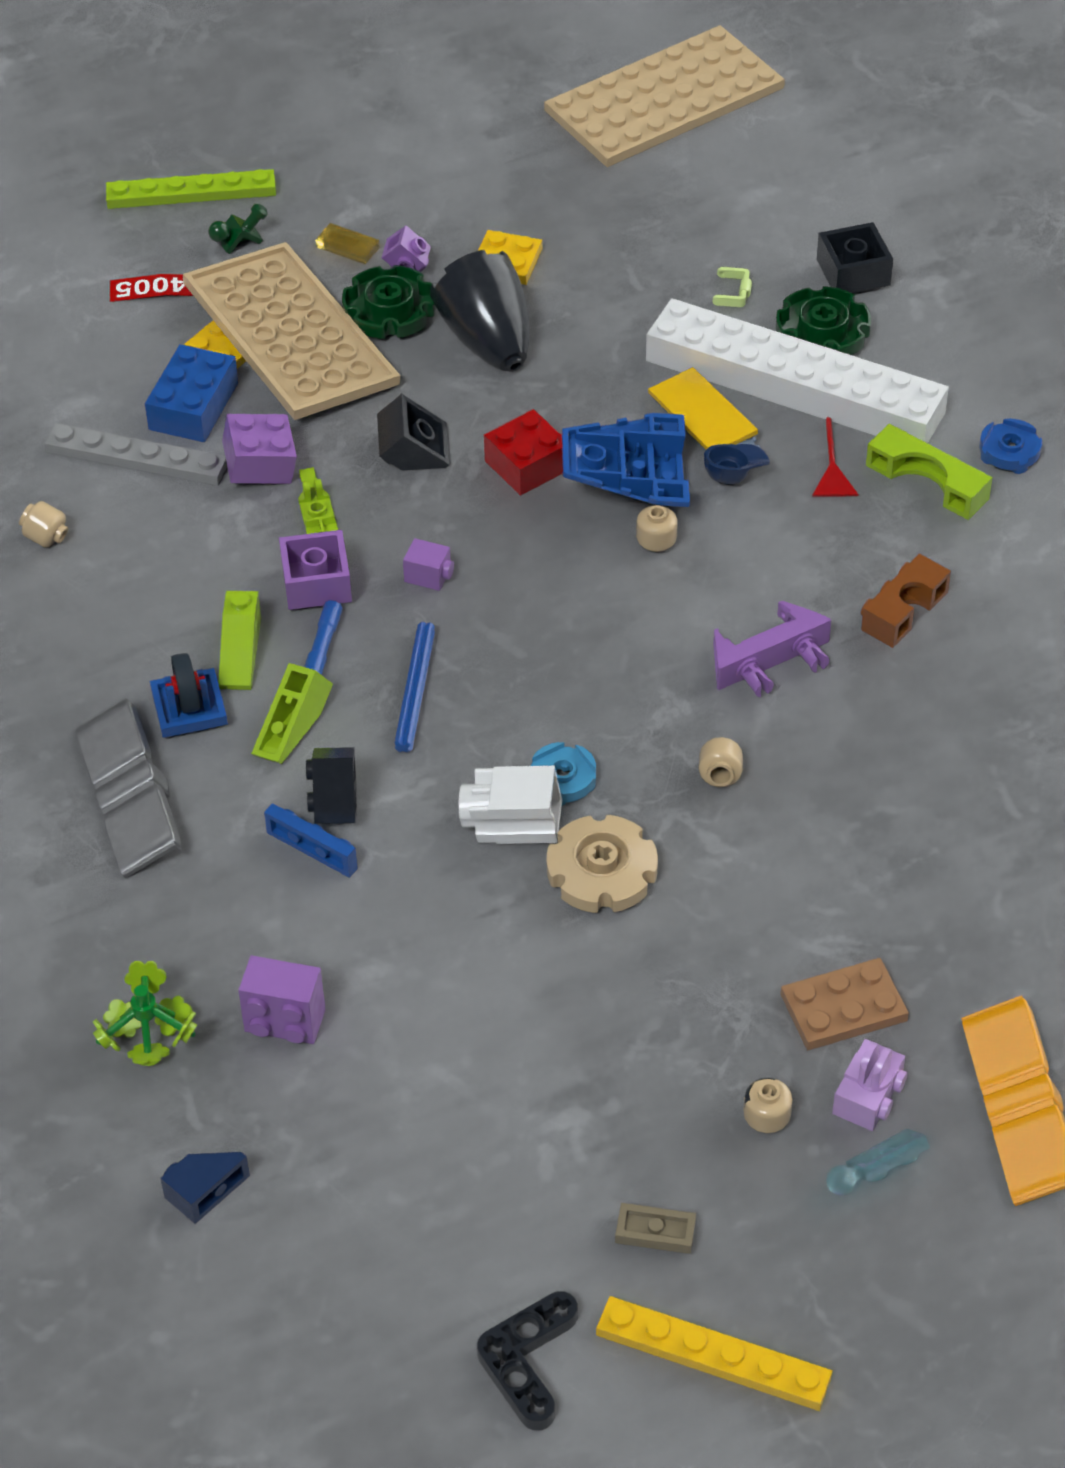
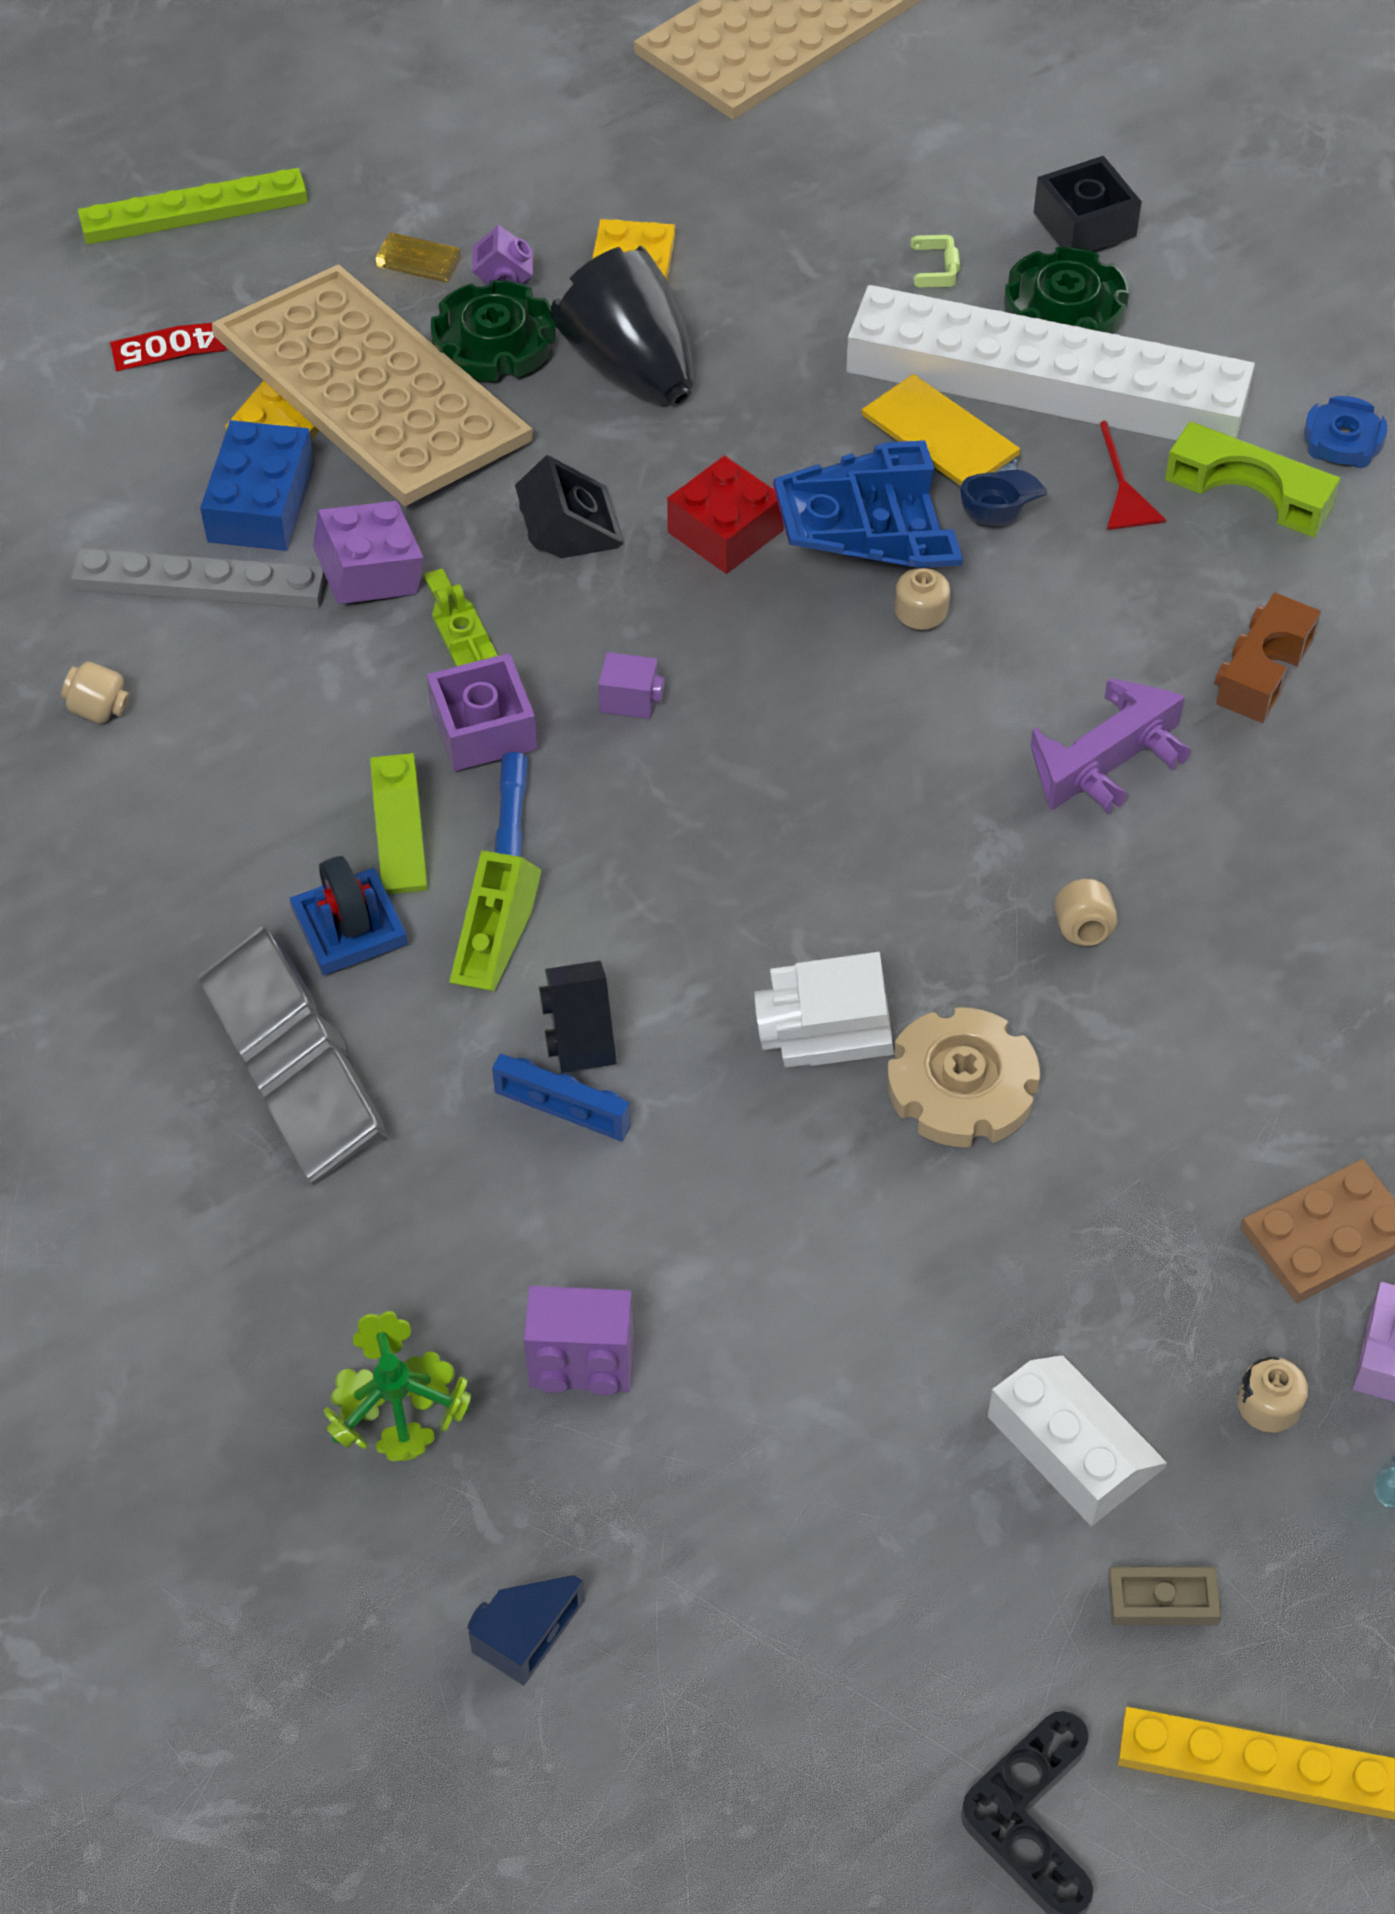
camera: 10 degrees left, 5 degrees up
(238, 230) = (269, 255): dark green piece -> none
(414, 687) = (650, 859): blue axle -> none
(576, 760) = (894, 935): dark azure plate -> none
(619, 1113) = (1073, 1436): none -> white slope

